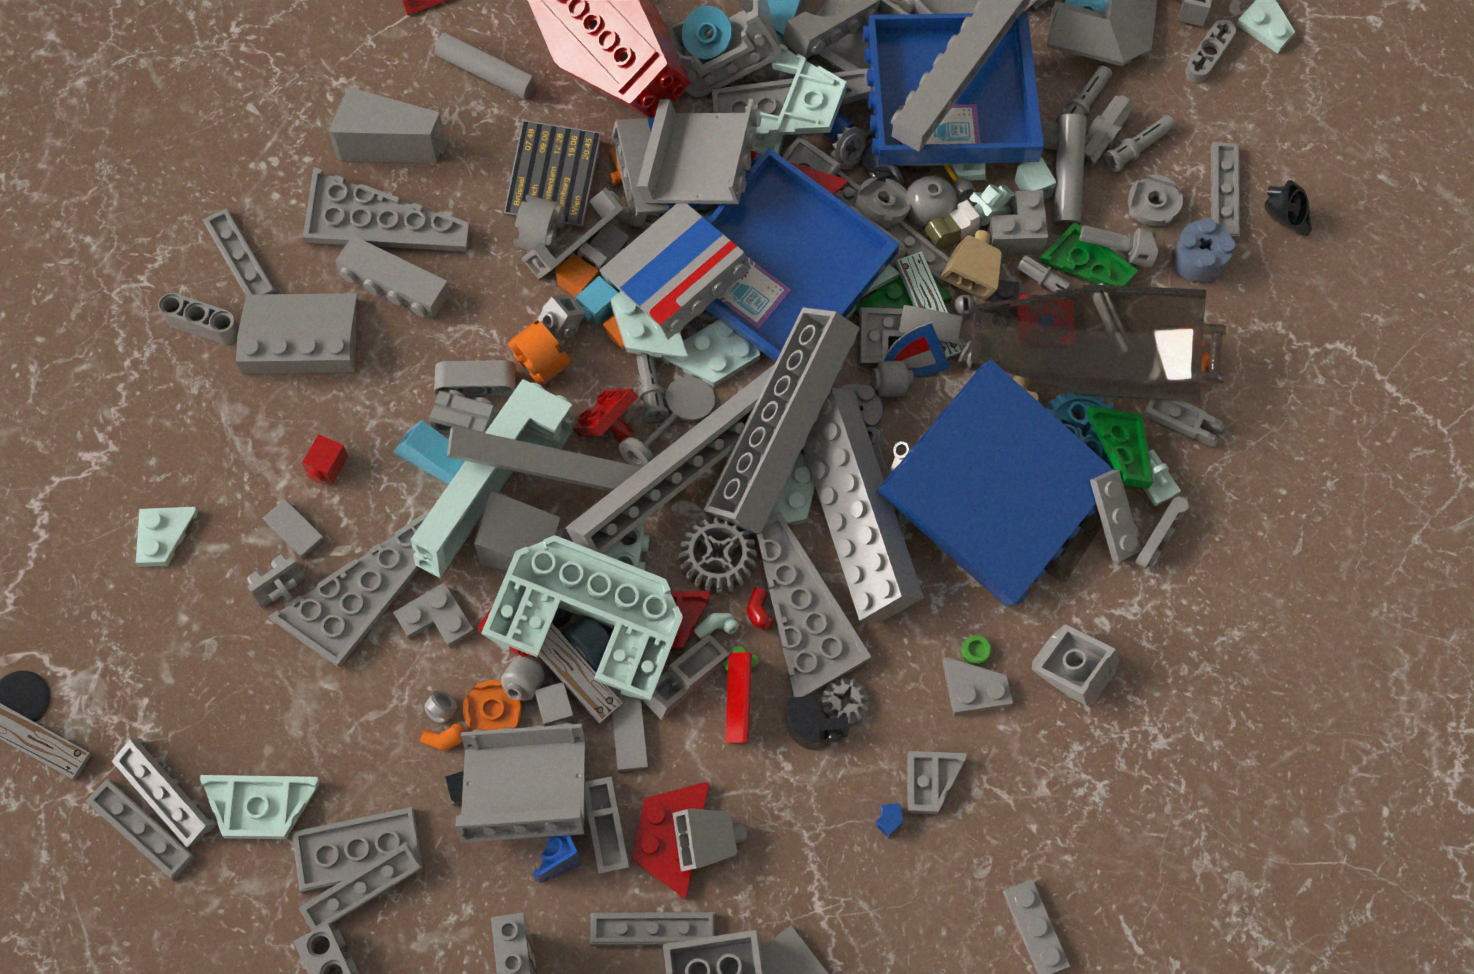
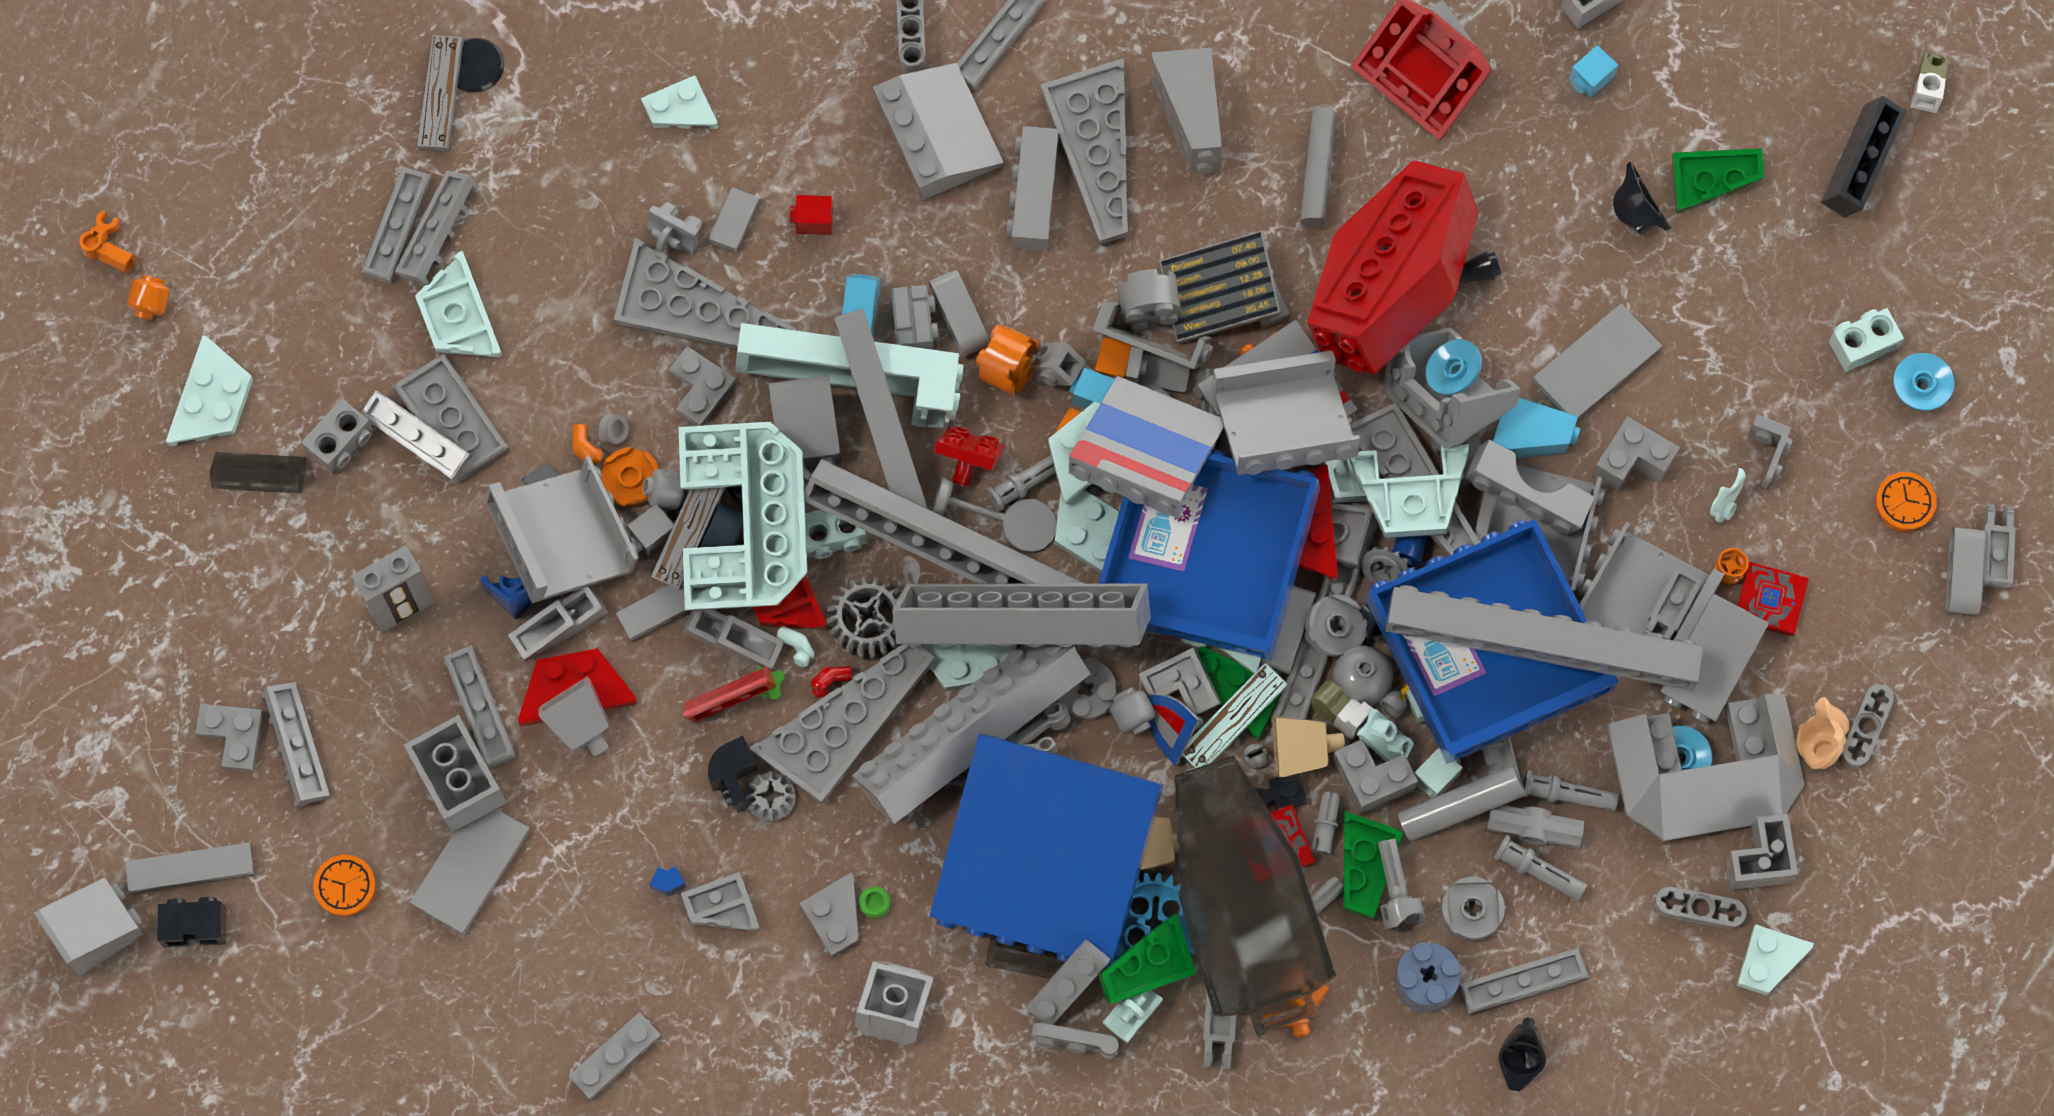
camera: 70 degrees right, 5 degrees up
(945, 324) = (1209, 733): light grey slope -> none

